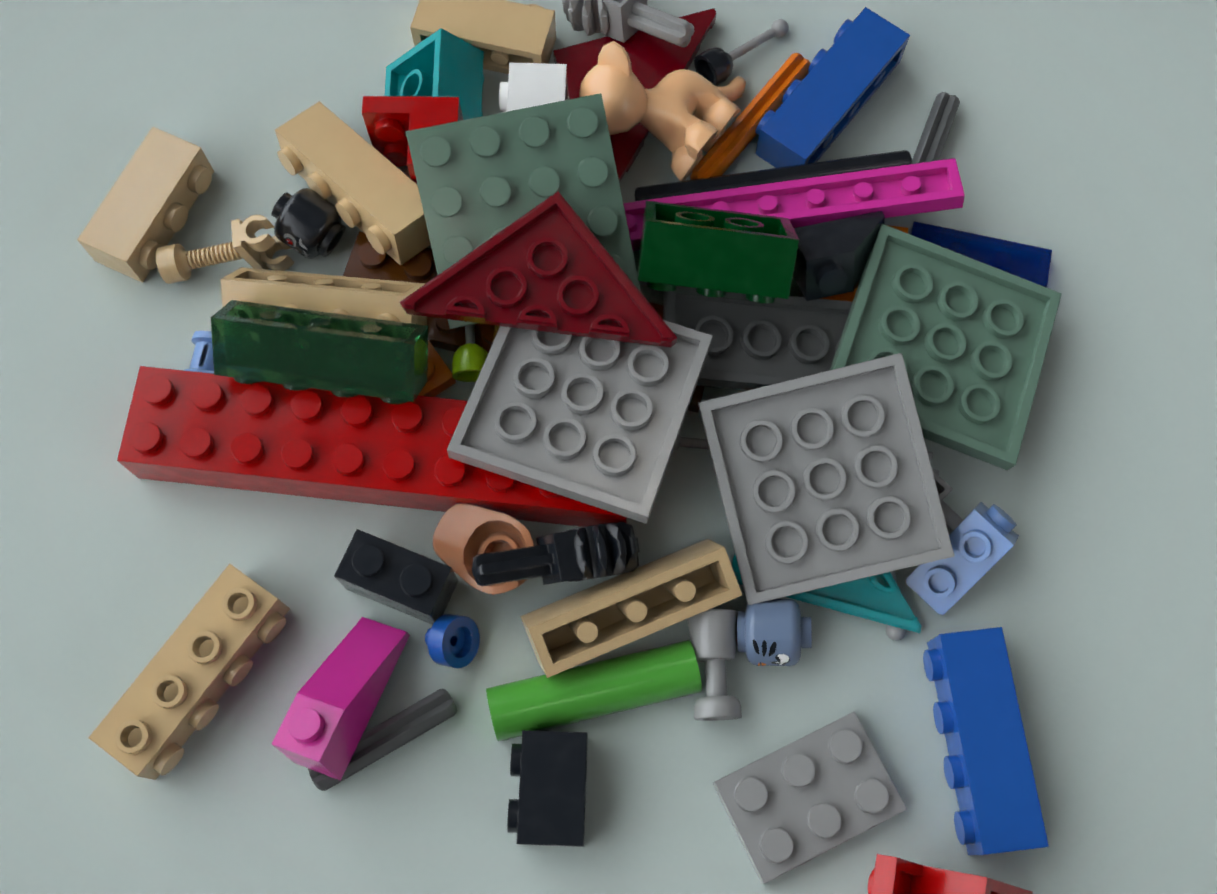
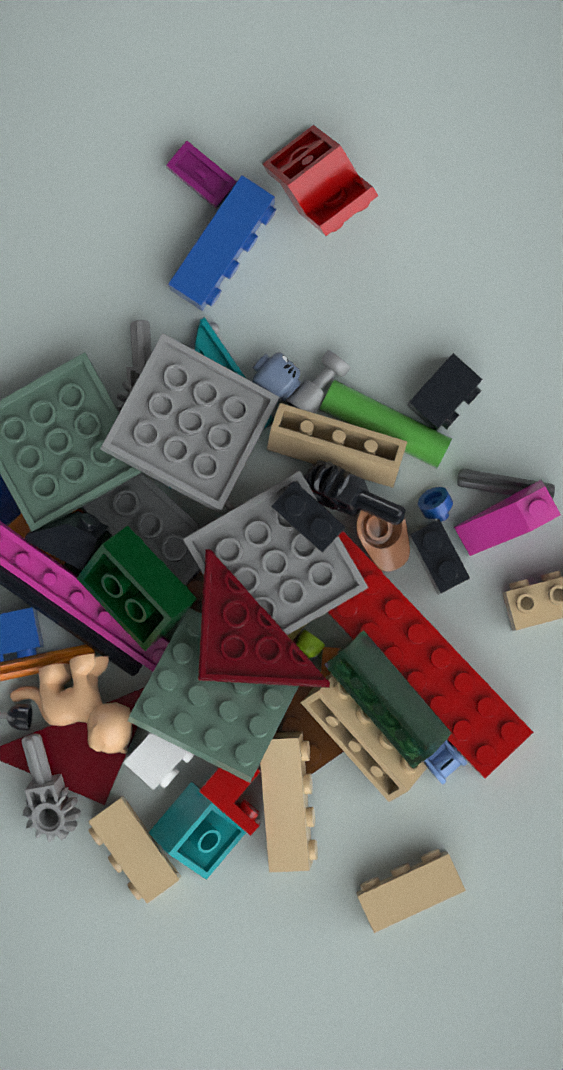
camera: 140 degrees left, 15 degrees up
(176, 263) = (375, 813): tan bar -> none
(307, 223) = (332, 803): black head -> none
(586, 460) = (308, 516): none -> black brick
(809, 797) = (326, 290): light grey plate -> none
(977, 547) = (143, 331): medium blue bracket -> none
(1094, 807) = (201, 174): none -> magenta plate

